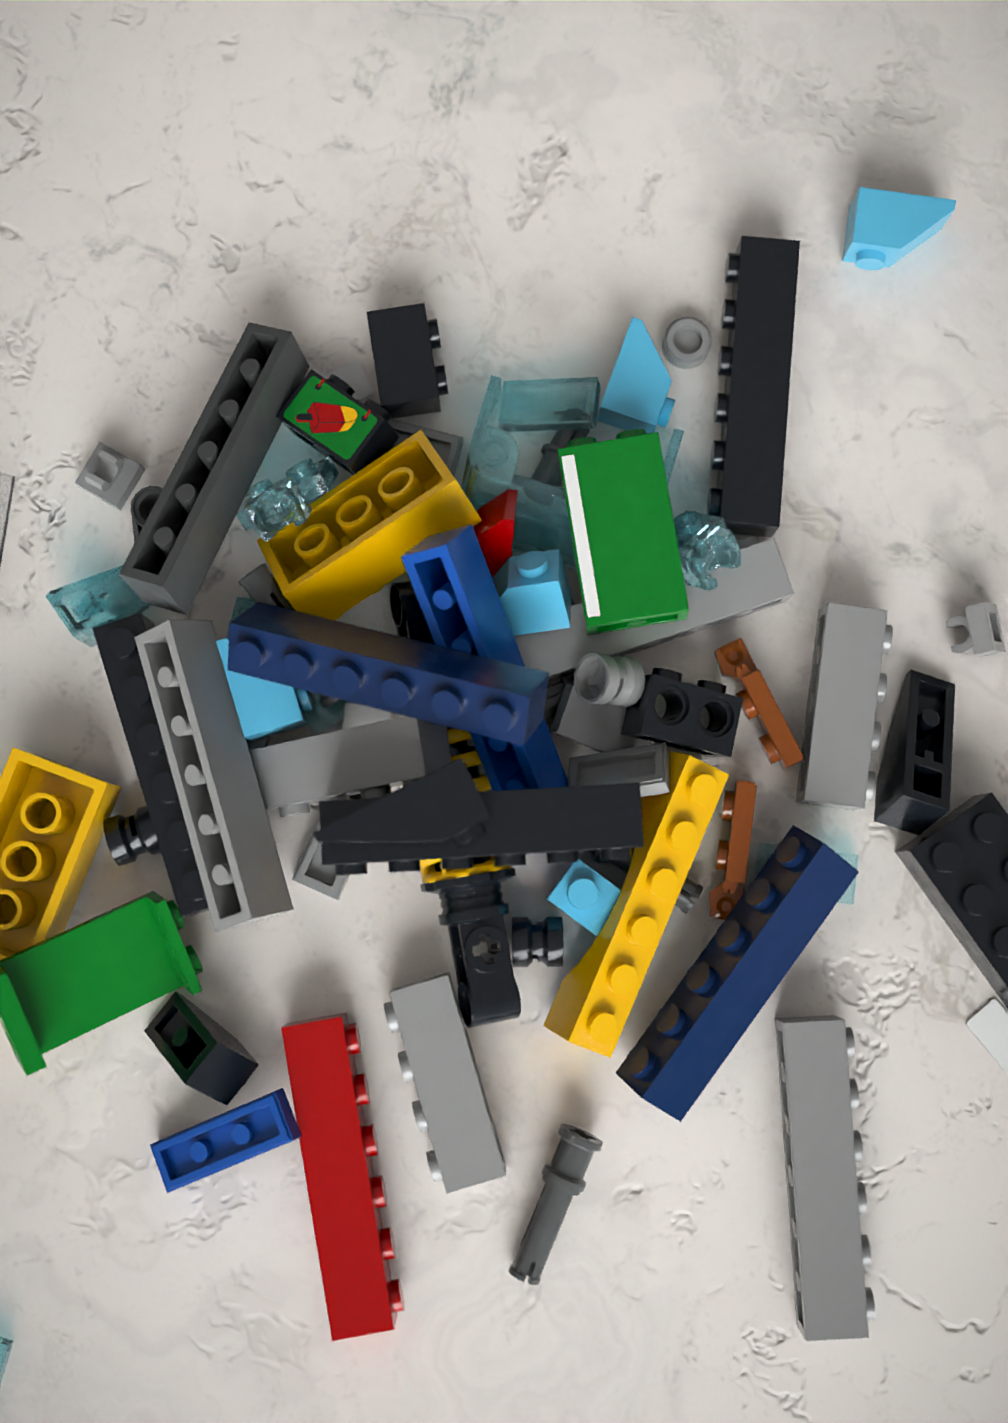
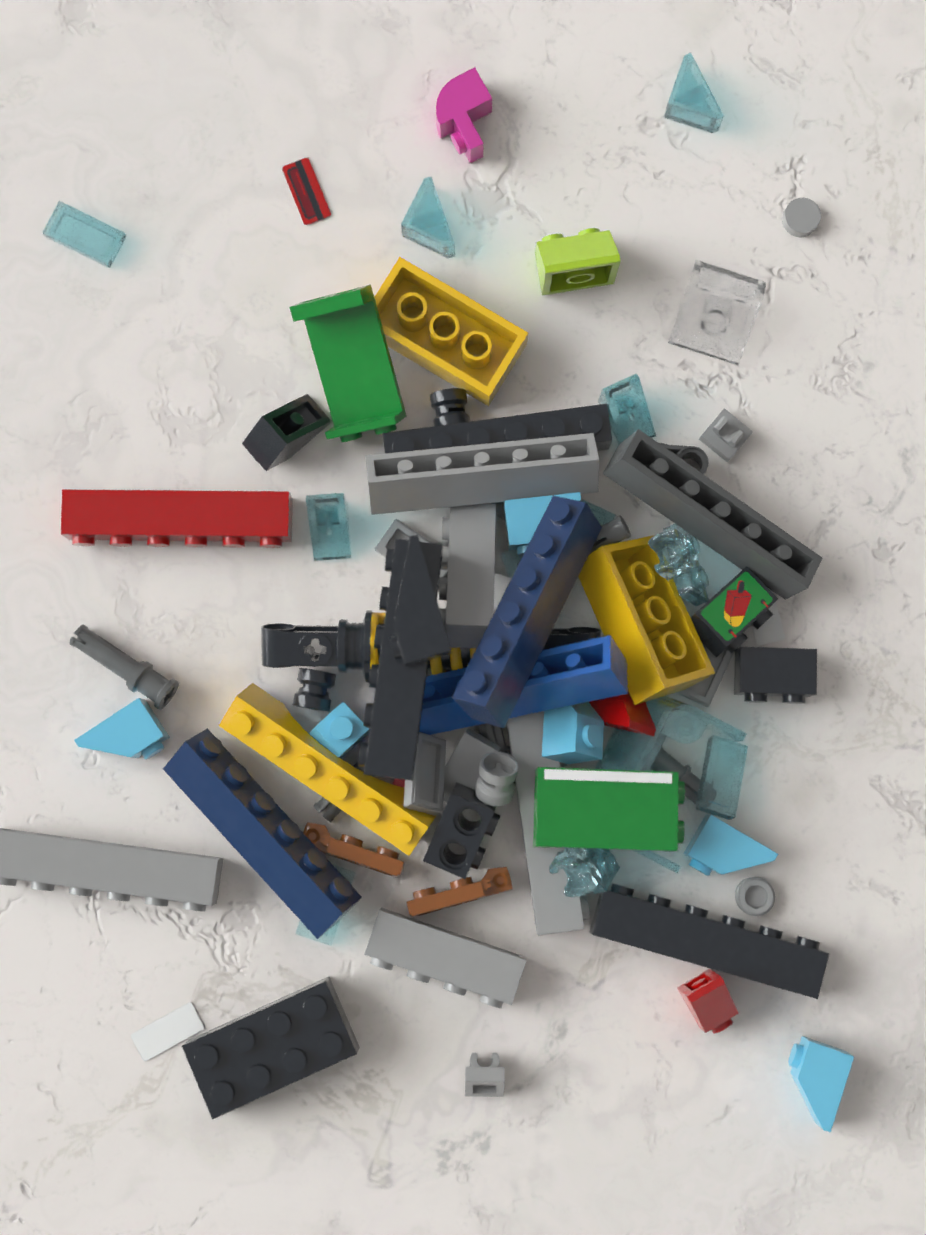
camera: 100 degrees right, 0 degrees up
(225, 1140) = (217, 438): blue tile -> none
(318, 965) = (329, 526): none -> clear light blue slope
(447, 1083) = (226, 604): light grey brick -> none
(642, 1179) = (128, 733): none -> medium azure slope
(827, 373) = (709, 1001): none -> red slope
(917, 759) = (398, 1007): black slope -> none

